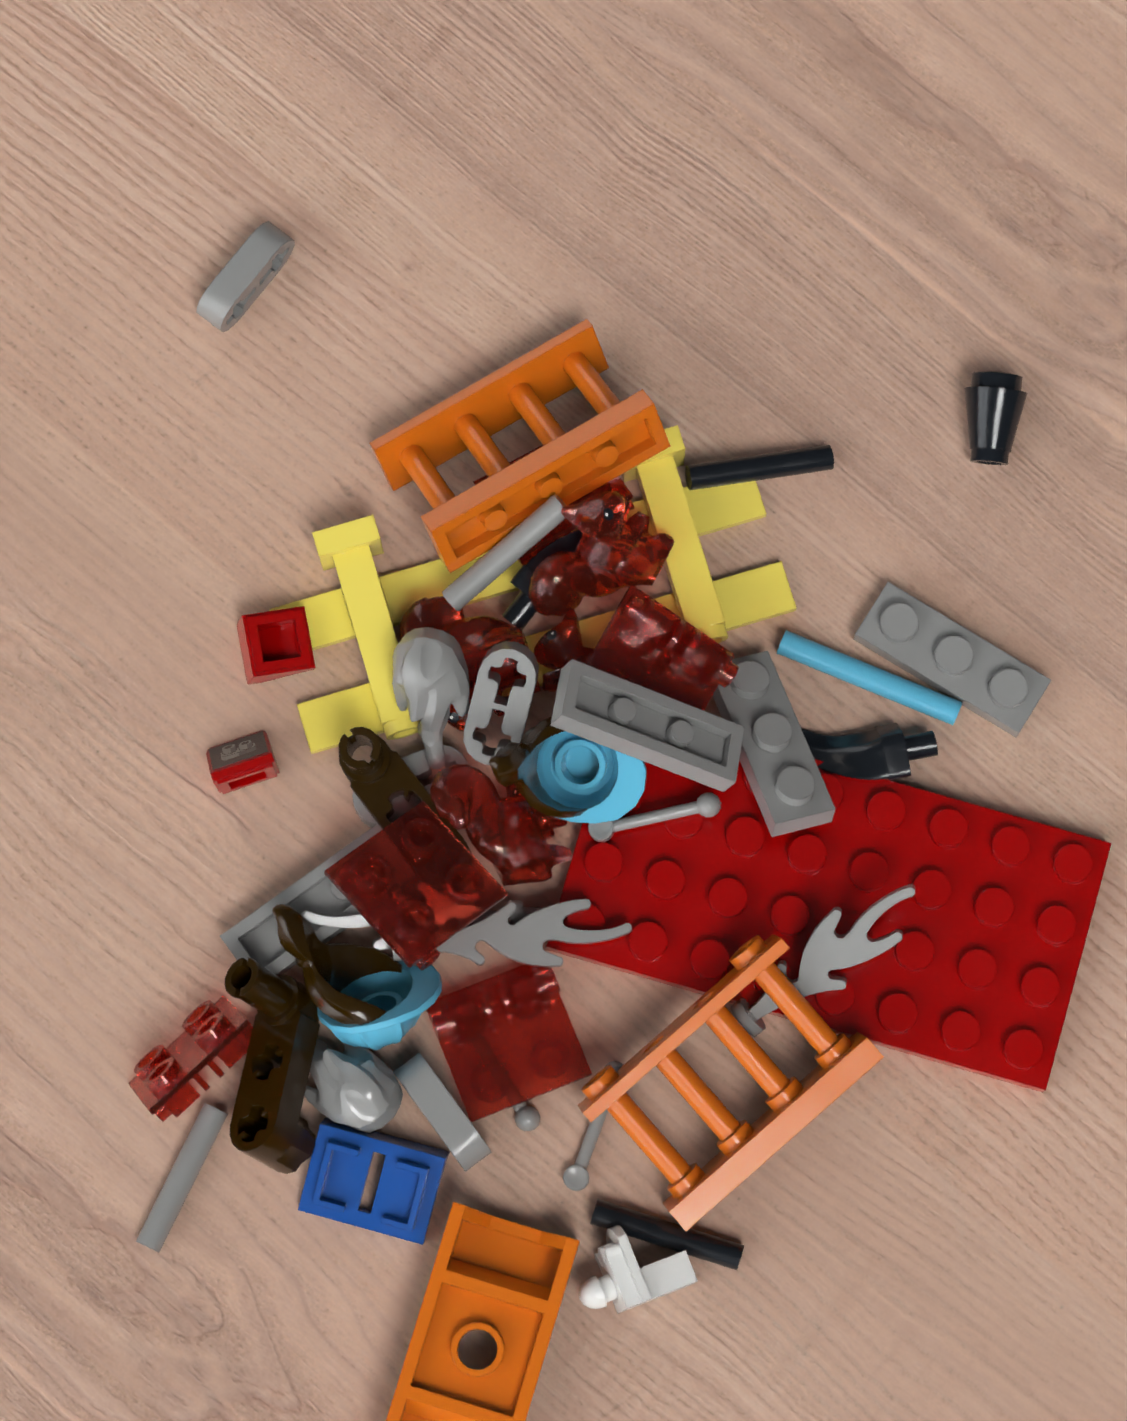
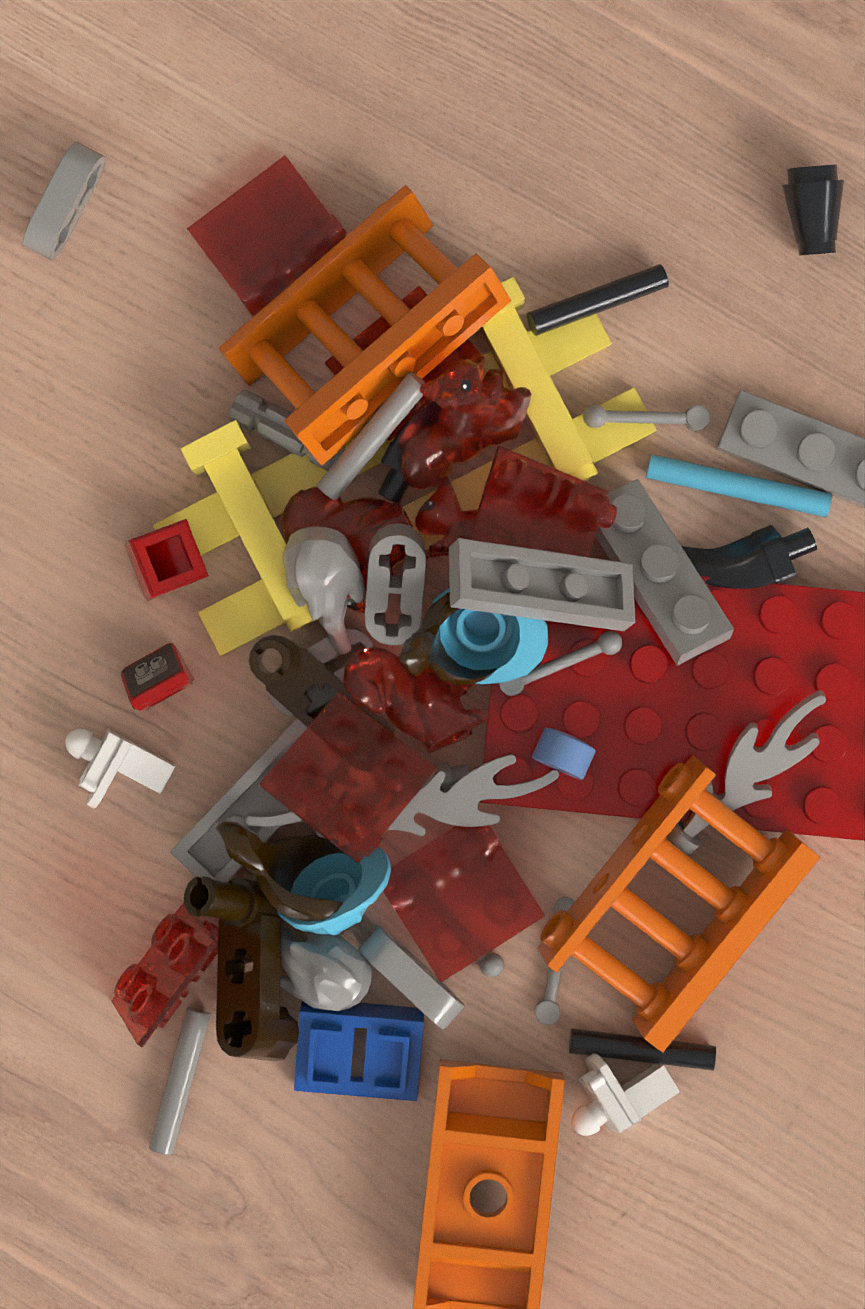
camera: 10 degrees left, 10 degrees up
(185, 828) = (115, 754): none -> white piece
(410, 532) = (253, 413): none -> light grey axle
(440, 344) = (267, 234): none -> clear red hinge
(640, 905) = (564, 753): none -> medium blue piece
(836, 603) = (694, 418): none -> light grey hinge

